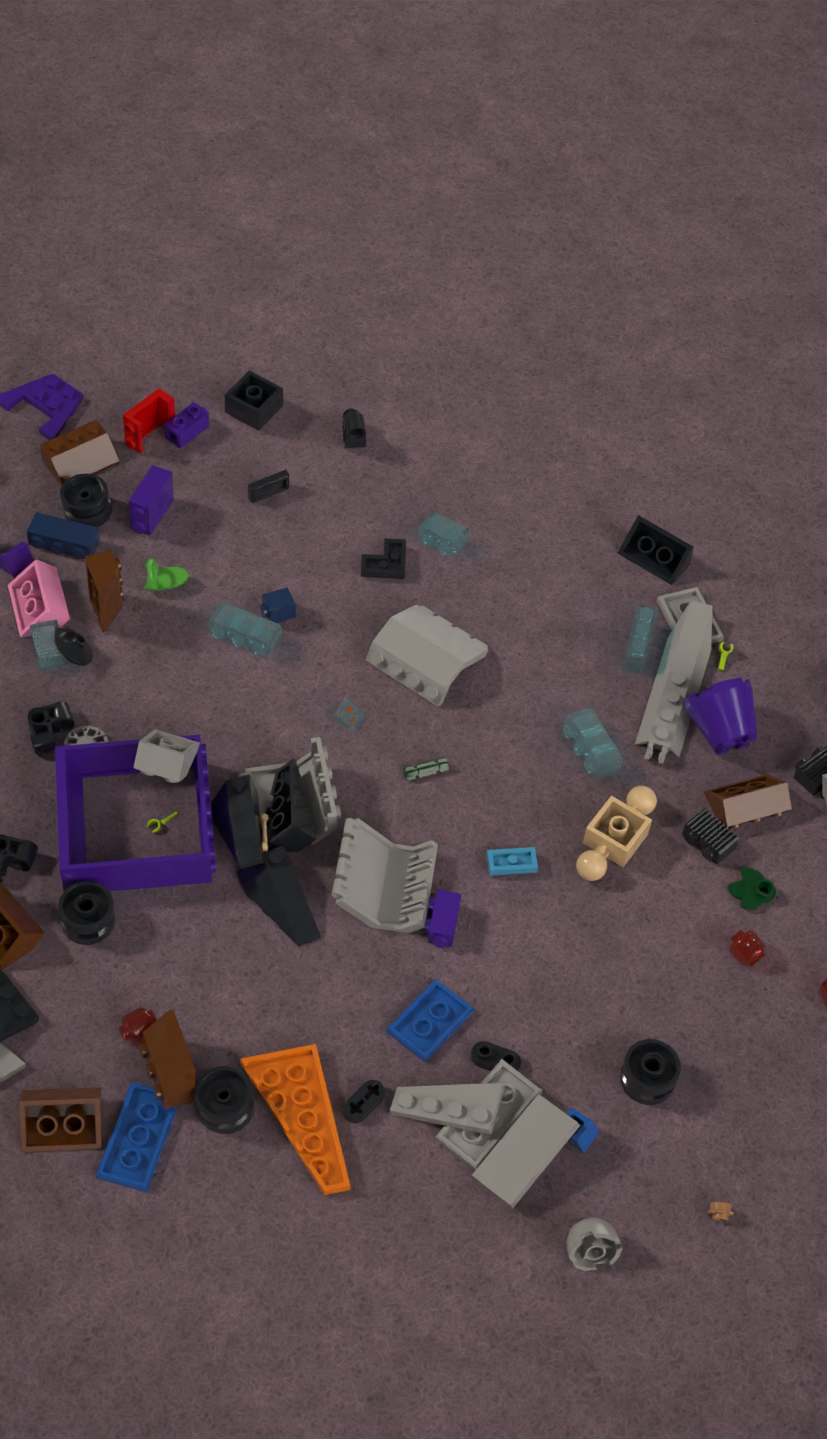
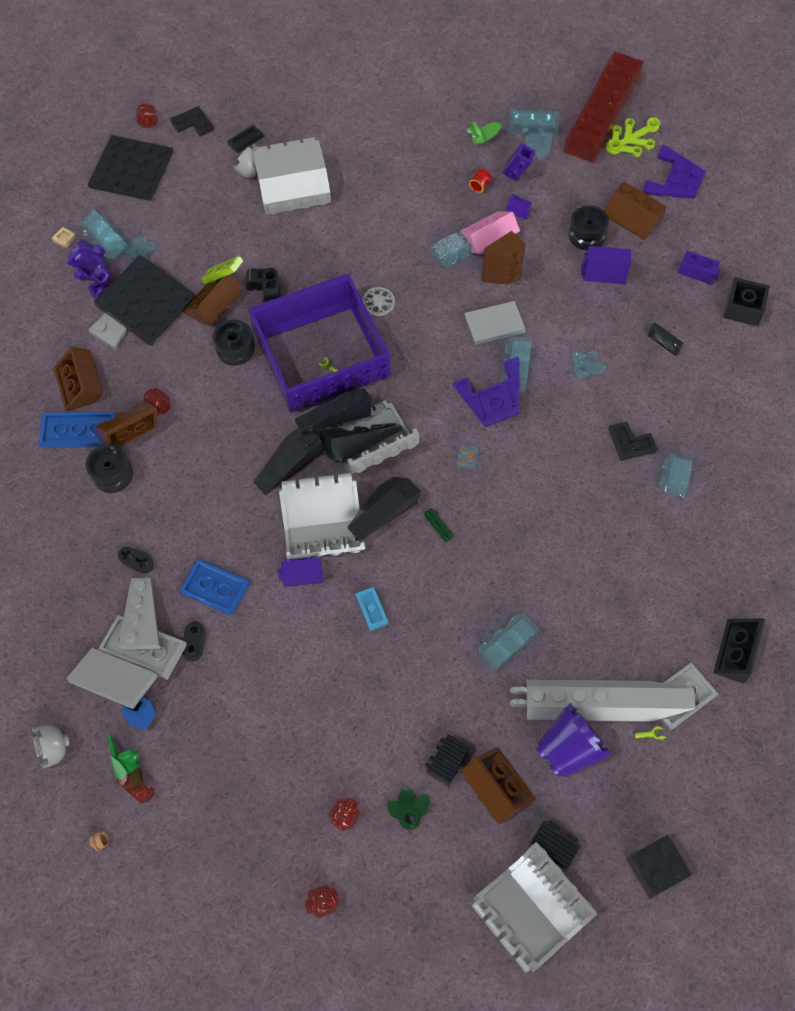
camera: 80 degrees right, 10 degrees up
(53, 719) = (381, 269): black piece -> none
(63, 536) = (551, 226): dark blue brick -> none
(73, 646) = (446, 263): black dish -> none
(146, 417) = (684, 235): red panel -> none
(164, 577) = (543, 299): bright green piece -> none
(165, 755) = (359, 337): light grey slope -> none
(173, 636) = (494, 322): none -> light grey tile
(264, 818) = (317, 429): tan hinge -> none
(266, 567) = (588, 362): none -> clear light blue plate
(278, 605) = (547, 378): dark blue brick -> none
(290, 662) = (497, 401): none -> dark purple wing
(299, 1100) = (121, 519): orange wing -> none
(353, 429) = (751, 379): black piece -> none
(384, 805) = (384, 505): none -> black wedge
(424, 652) = (552, 493): light grey hinge -> none
(616, 832) = (418, 668): tan brick -> none
(640, 639) = (633, 656): clear light blue brick -> none
(649, 1158) = (129, 773): none -> animal
(650, 1071) = (199, 745): black wheel -> none

